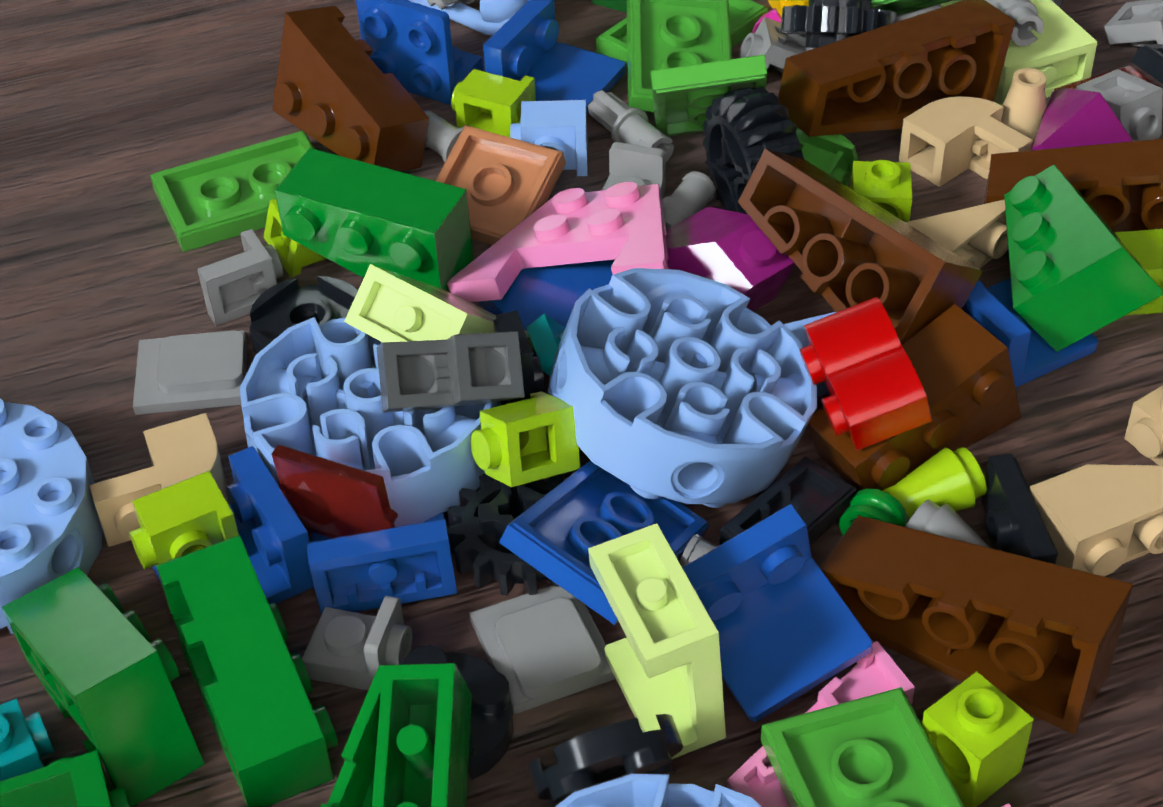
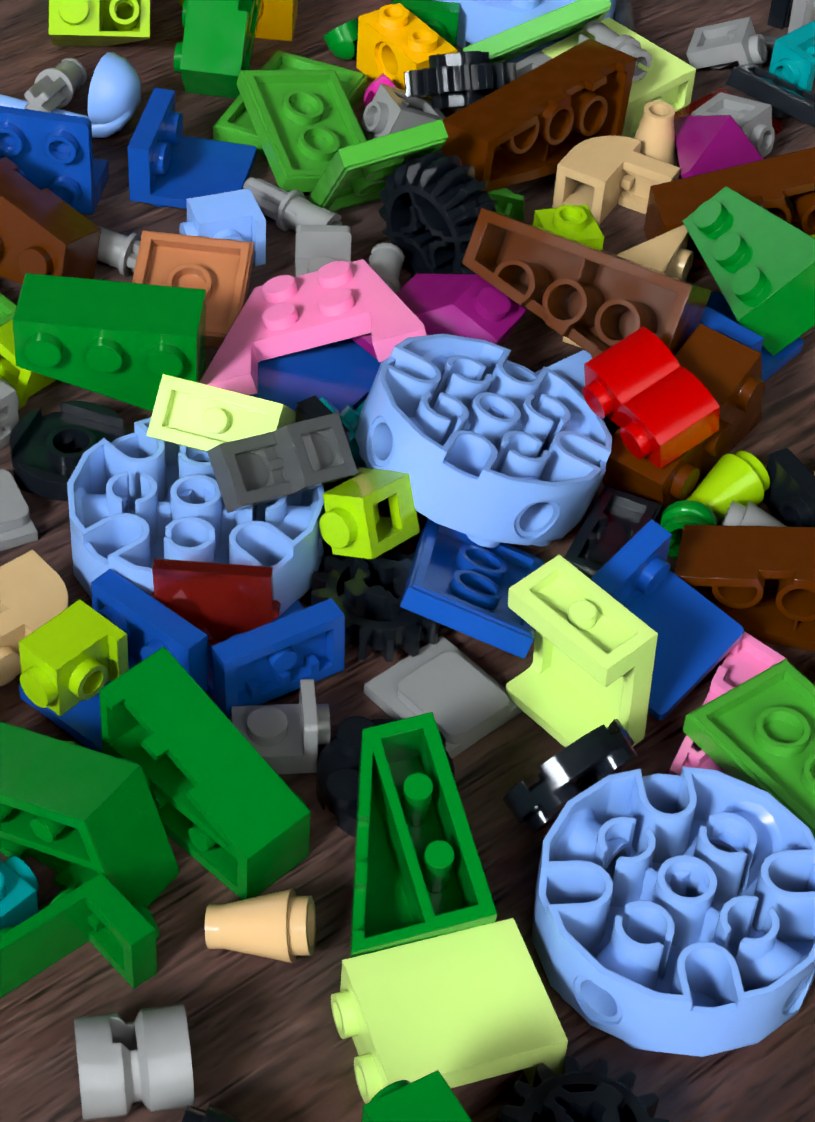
camera: 25 degrees left, 0 degrees up
(491, 101) = (147, 203): lime brick -> none

